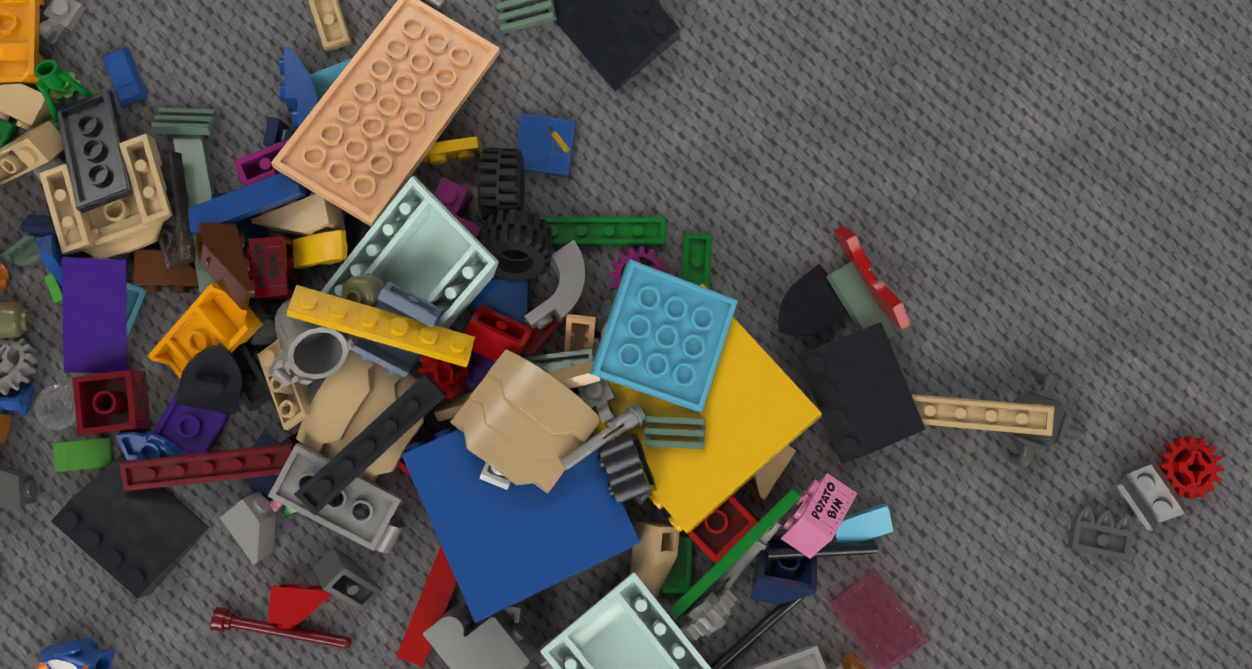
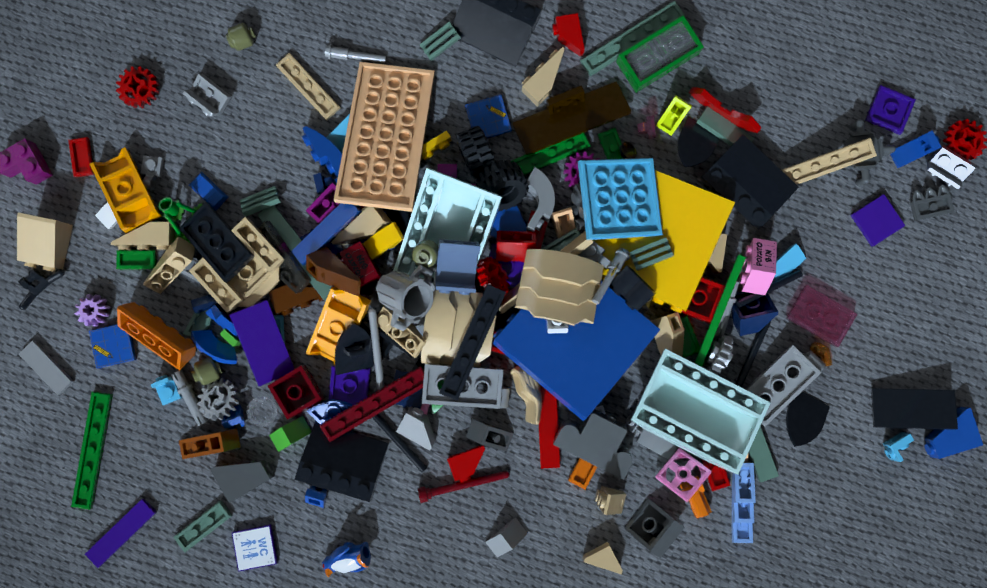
camera: 25 degrees left, 0 degrees up
(27, 289) = (210, 345): none -> blue tile
(70, 555) = (314, 497): none -> blue tile
(223, 535) = (400, 443): none -> black bar
(244, 392) = (376, 348): none -> light grey bar
(380, 326) = (448, 267): yellow plate -> none
(428, 550) = (530, 392): none -> tan hair
(639, 128) = (541, 83): none -> tan slope
(657, 191) = (570, 116): none -> dark brown bracket
(706, 76) = (569, 32): none -> red slope
(713, 274) = (627, 150): none -> black piece
(756, 254) = (647, 127): none -> clear pink tile
(791, 122) = (609, 52): none -> sand green tile
(797, 253) = (673, 115): none -> neon yellow slope
(816, 160) = (659, 54): none -> brick
(1016, 523) = (877, 220): none -> dark purple tile
(1103, 378) = (890, 110): none -> dark purple tile
(1113, 449) = (916, 149): none -> blue bracket

